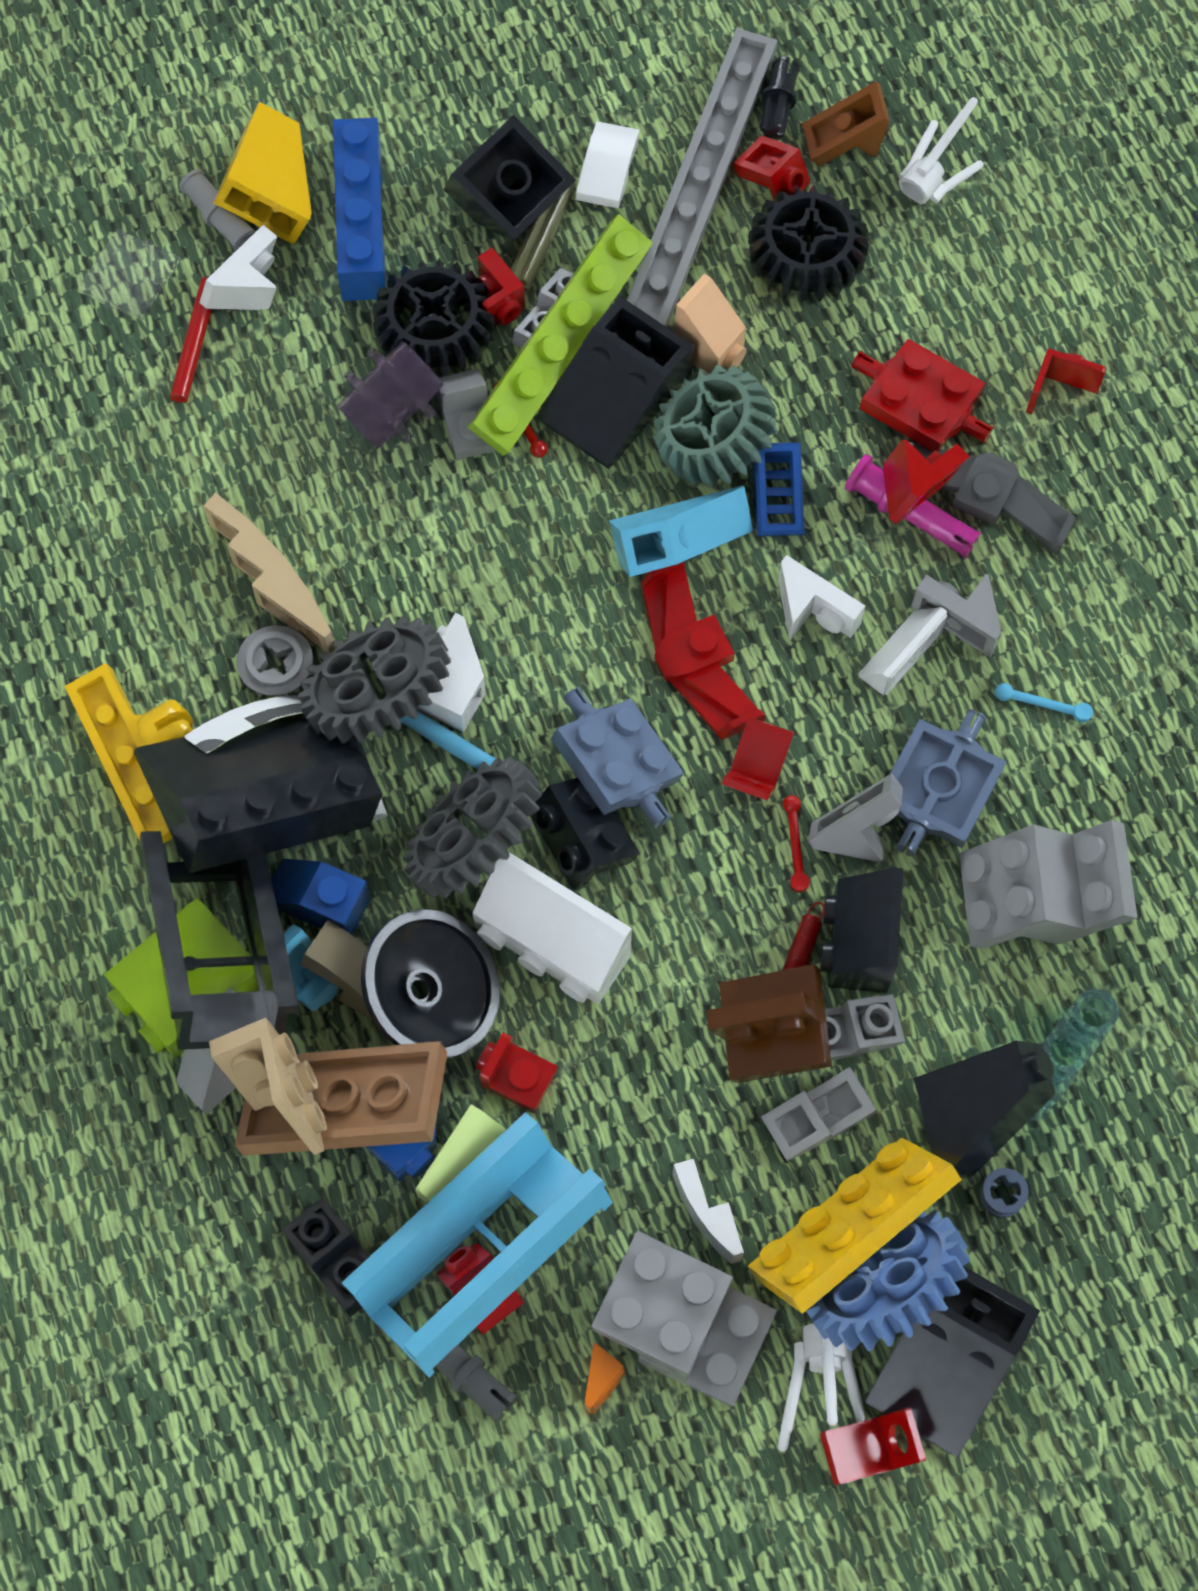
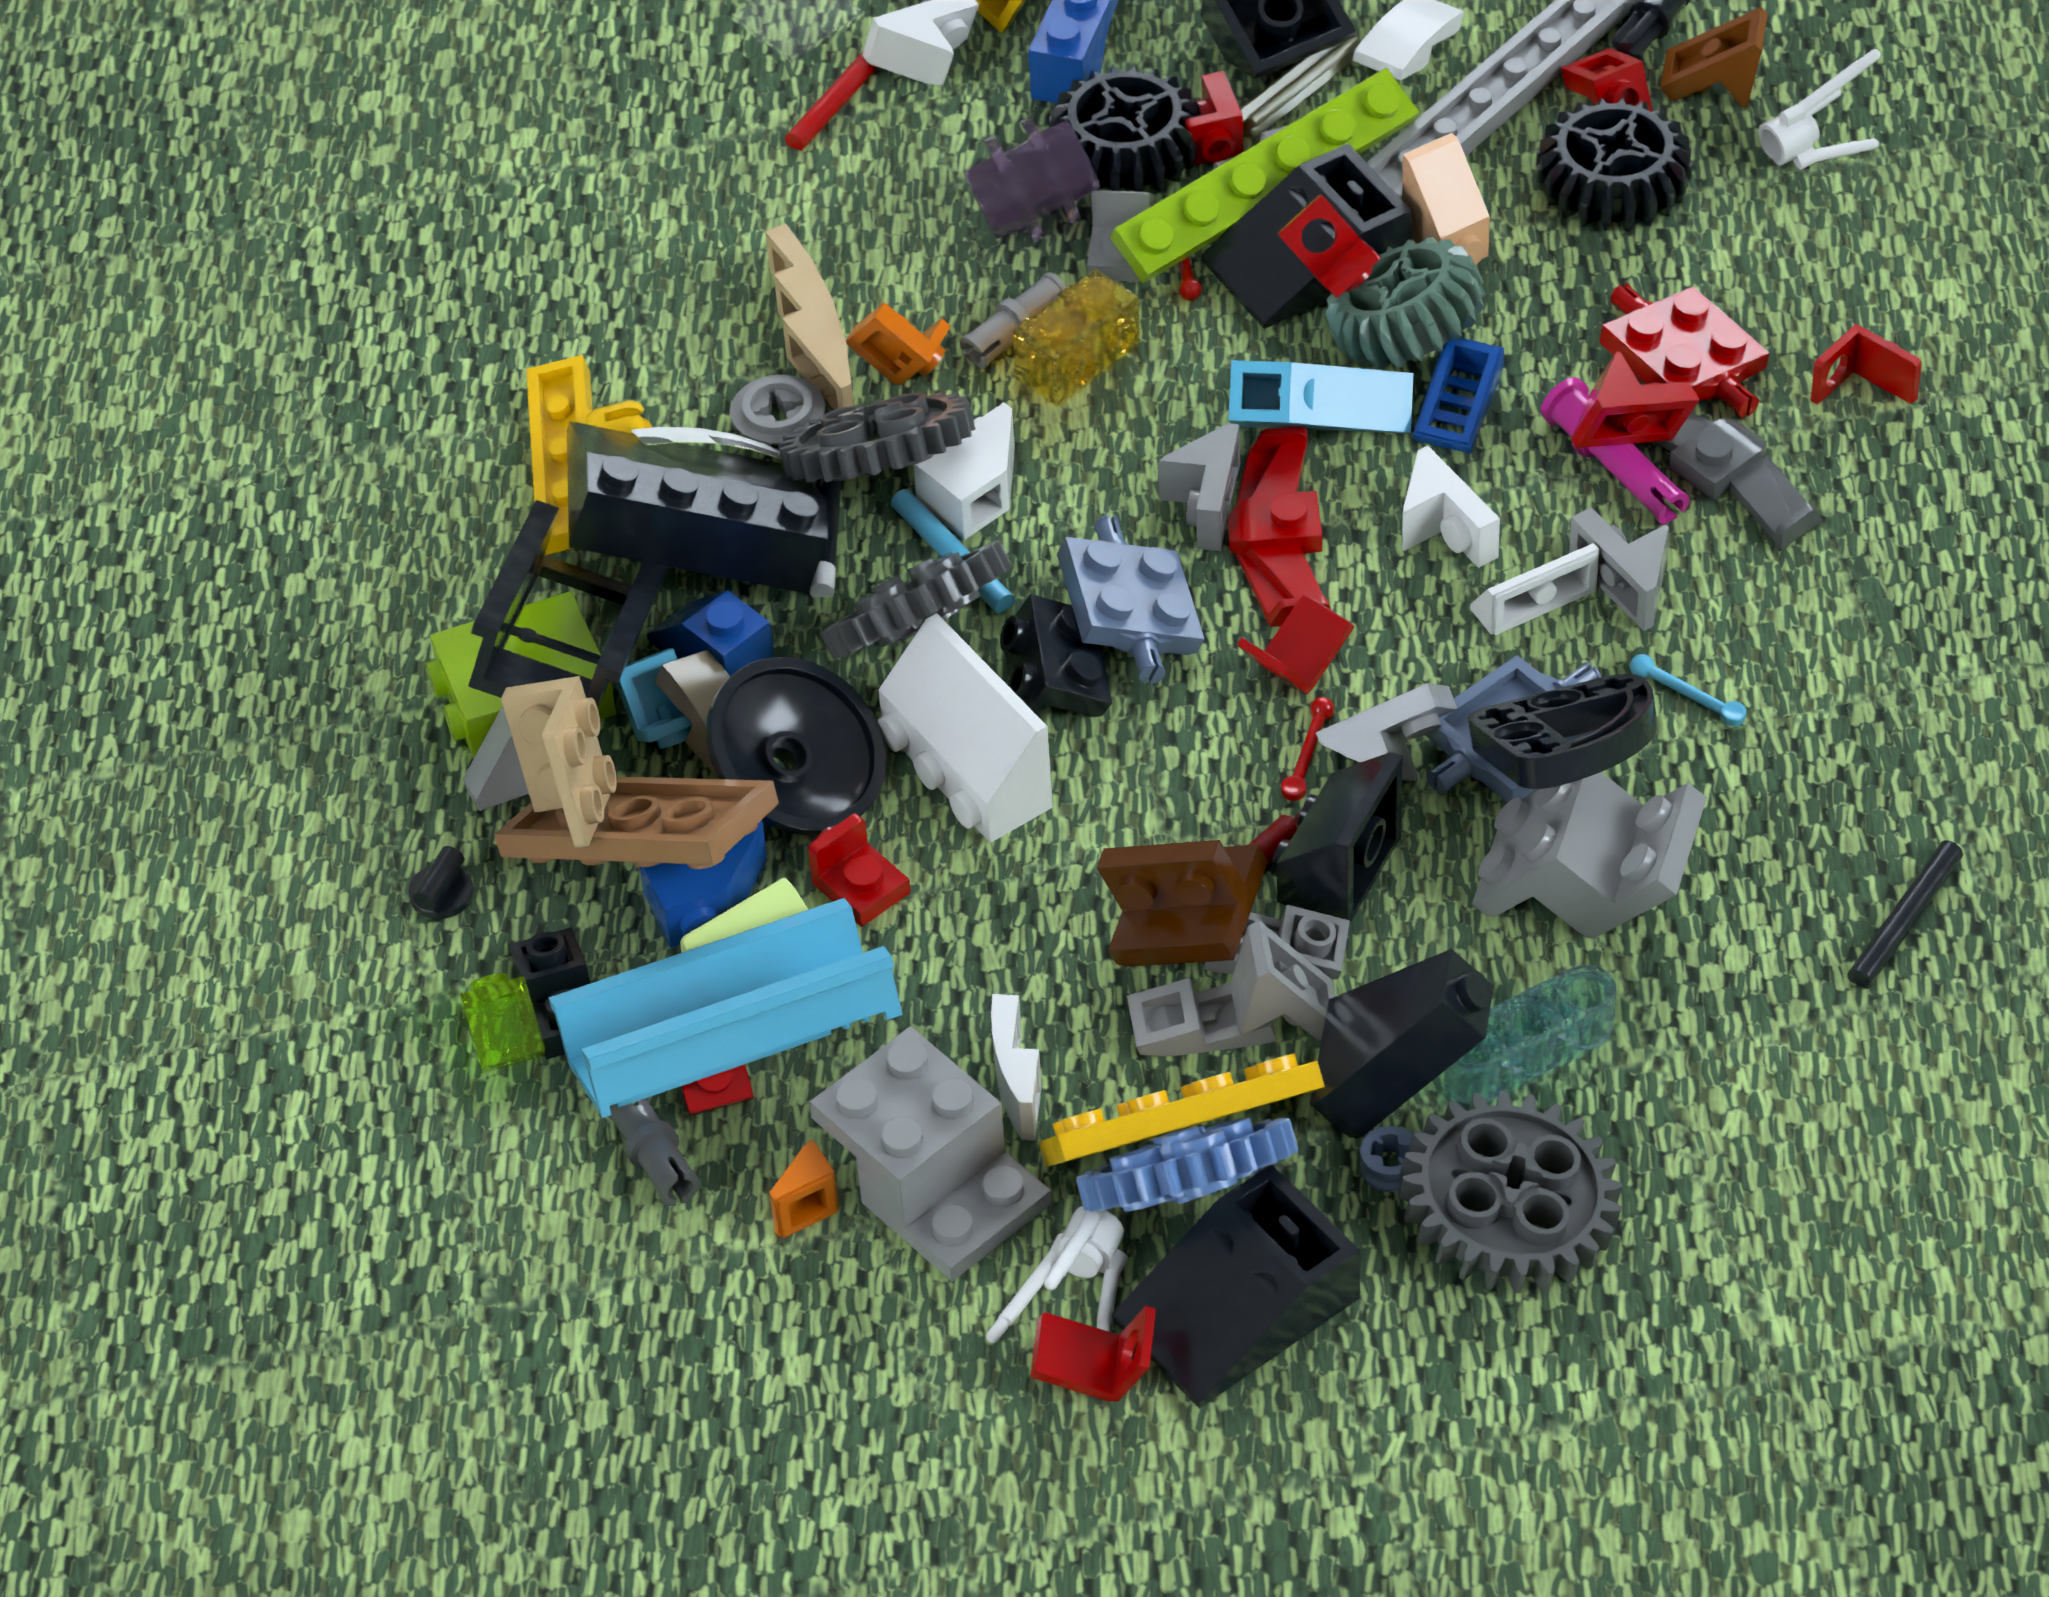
camera: 25 degrees right, 20 degrees down
(205, 1194) = (443, 887): none -> black plate
(306, 1304) = (501, 1022): none -> clear neon green bracket
(347, 577) = (896, 346): none -> orange bracket
(422, 521) = (996, 333): none -> light grey pin
(479, 527) = (1076, 337): none -> clear yellow brick
(629, 625) = (1205, 479): none -> light grey slope
(662, 408) = (1344, 263): none -> red bracket
(873, 1081) = (1277, 981): none -> light grey slope
(1007, 753) = (1529, 733): none -> black beam
(1114, 1242) = (1510, 1191): none -> dark grey gear

